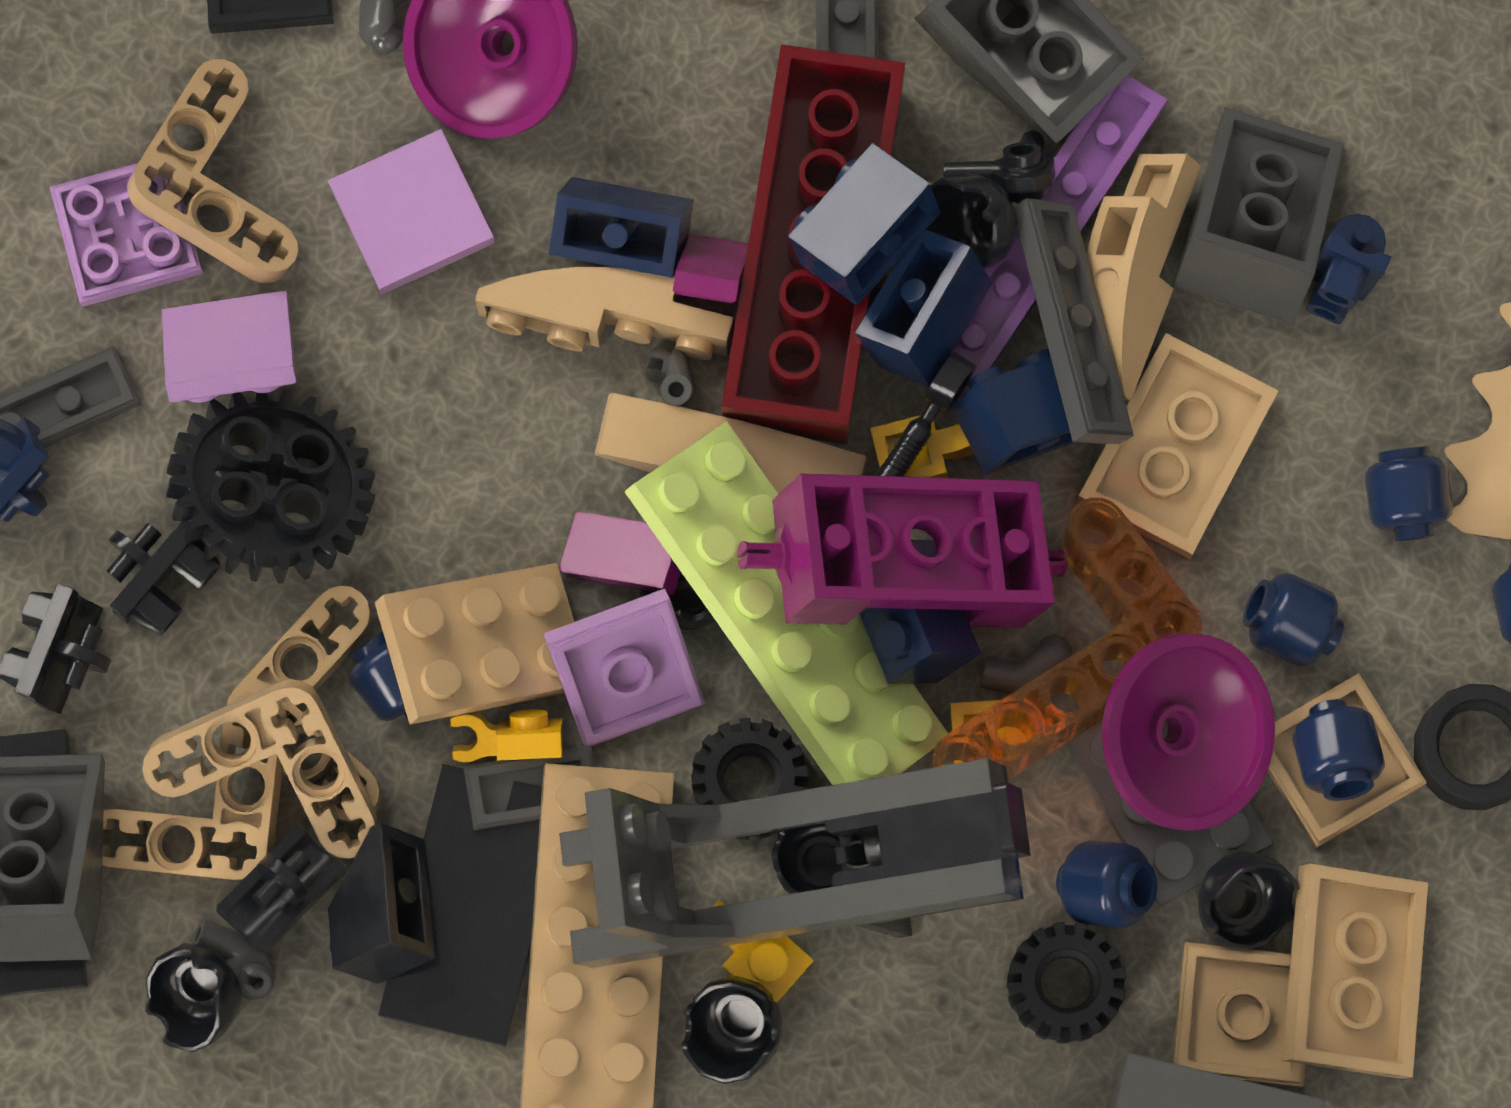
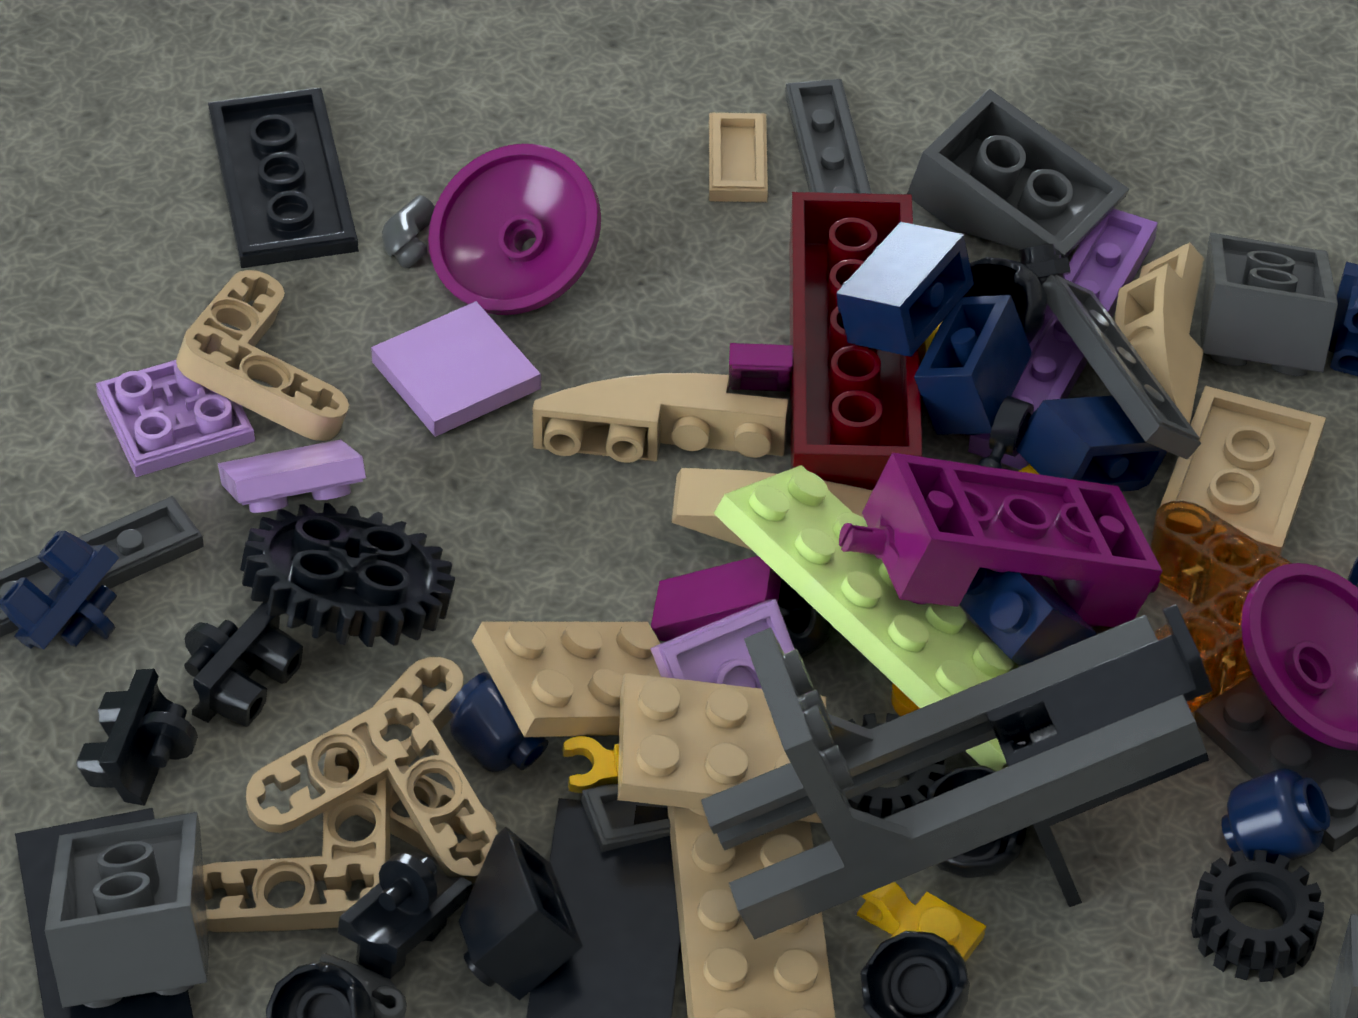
camera: 10 degrees left, 30 degrees down
(586, 739) = (692, 740): none -> tan plate
(620, 226) = (663, 342): dark blue brick -> none
(675, 374) = (742, 455): dark grey arm -> none

